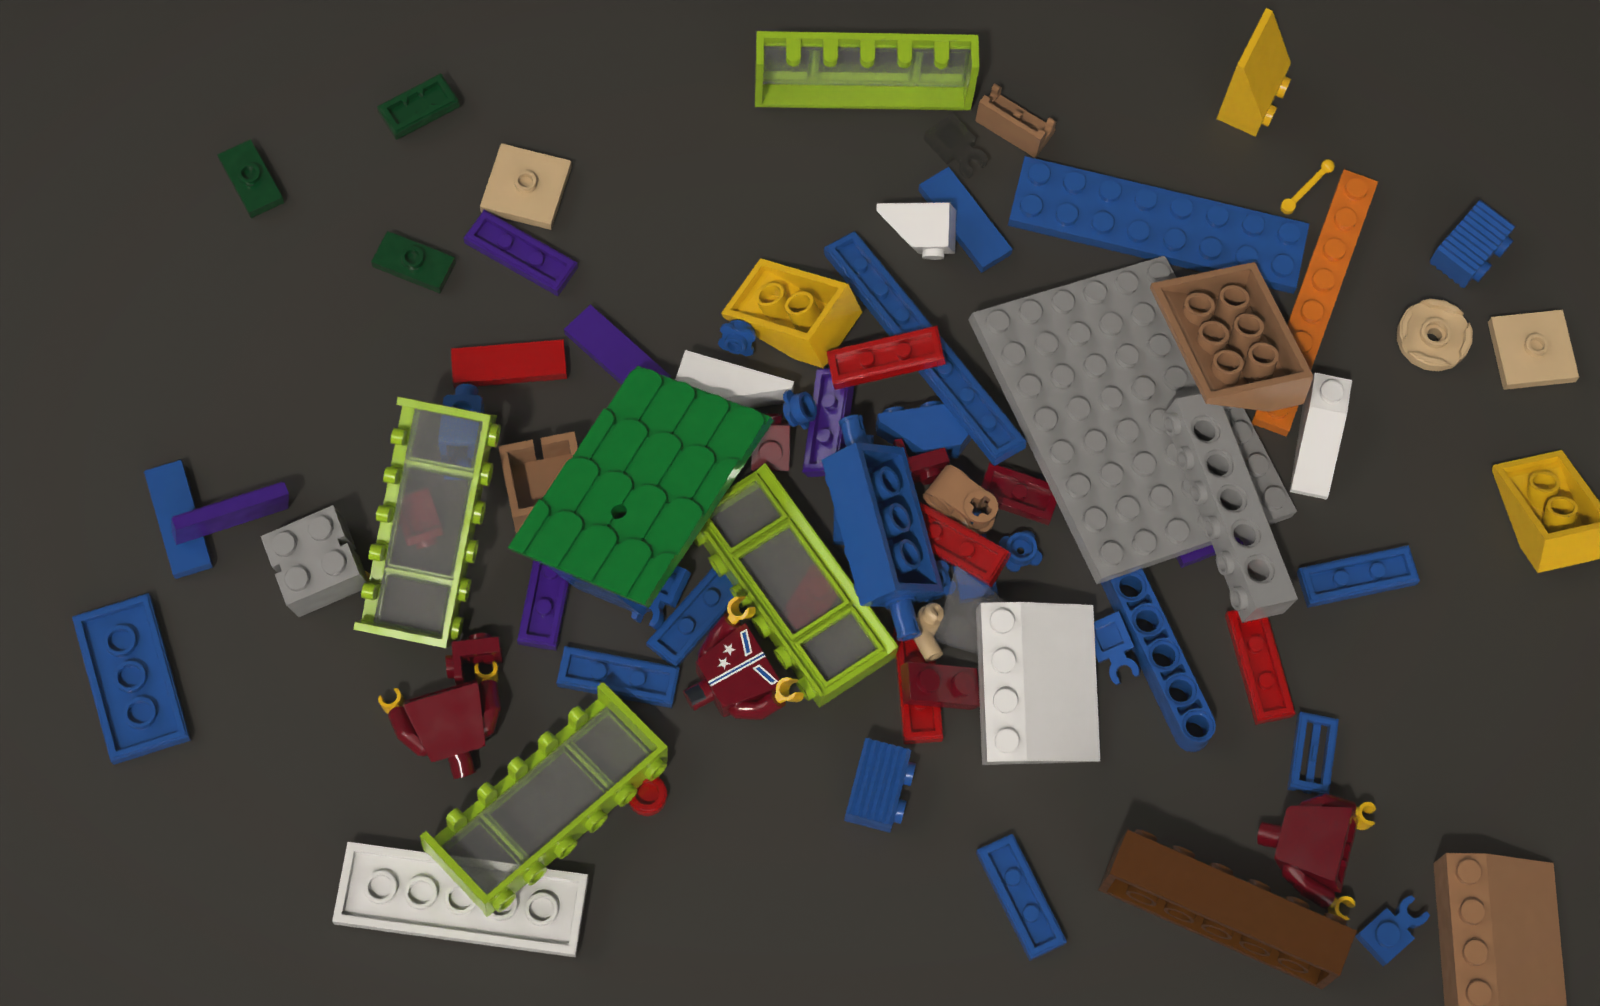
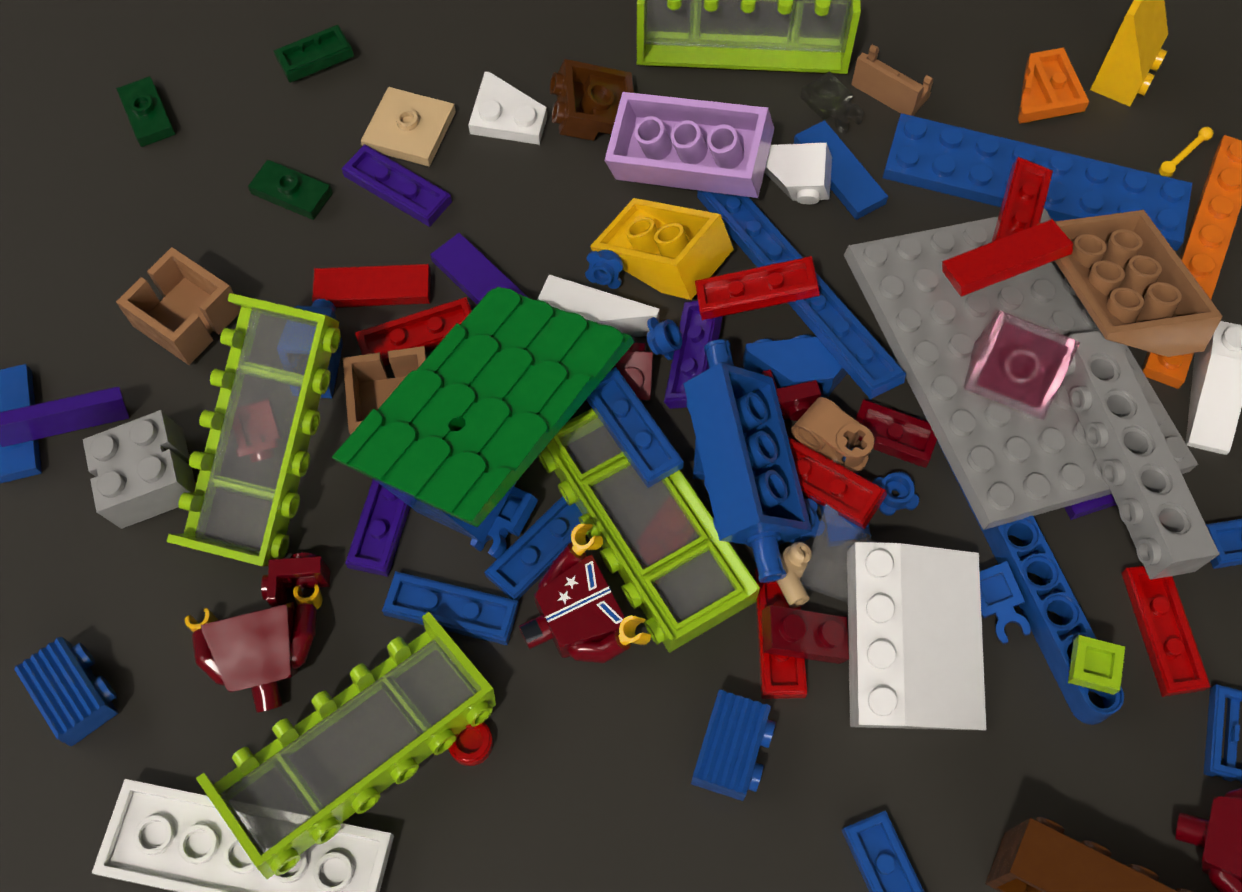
camera: 10 degrees right, 5 degrees down
(281, 768) = (67, 690): none -> blue brick
(333, 396) = (191, 307): none -> medium nougat piece
(558, 410) = (415, 330): none -> red tile
(625, 167) = (506, 113): none -> white wing
(714, 154) = (587, 98): none -> reddish brown plate
(778, 504) = (634, 429): none -> blue tile
(815, 208) = (690, 144): none -> lavender brick
(1120, 321) = (1007, 257): none -> red tile
(1128, 430) = (1019, 364): none -> clear pink slope
(1140, 262) = (1023, 198): none -> red tile
(1174, 121) = (1050, 87): none -> orange wing
(1190, 700) = (1096, 664): none -> lime plate

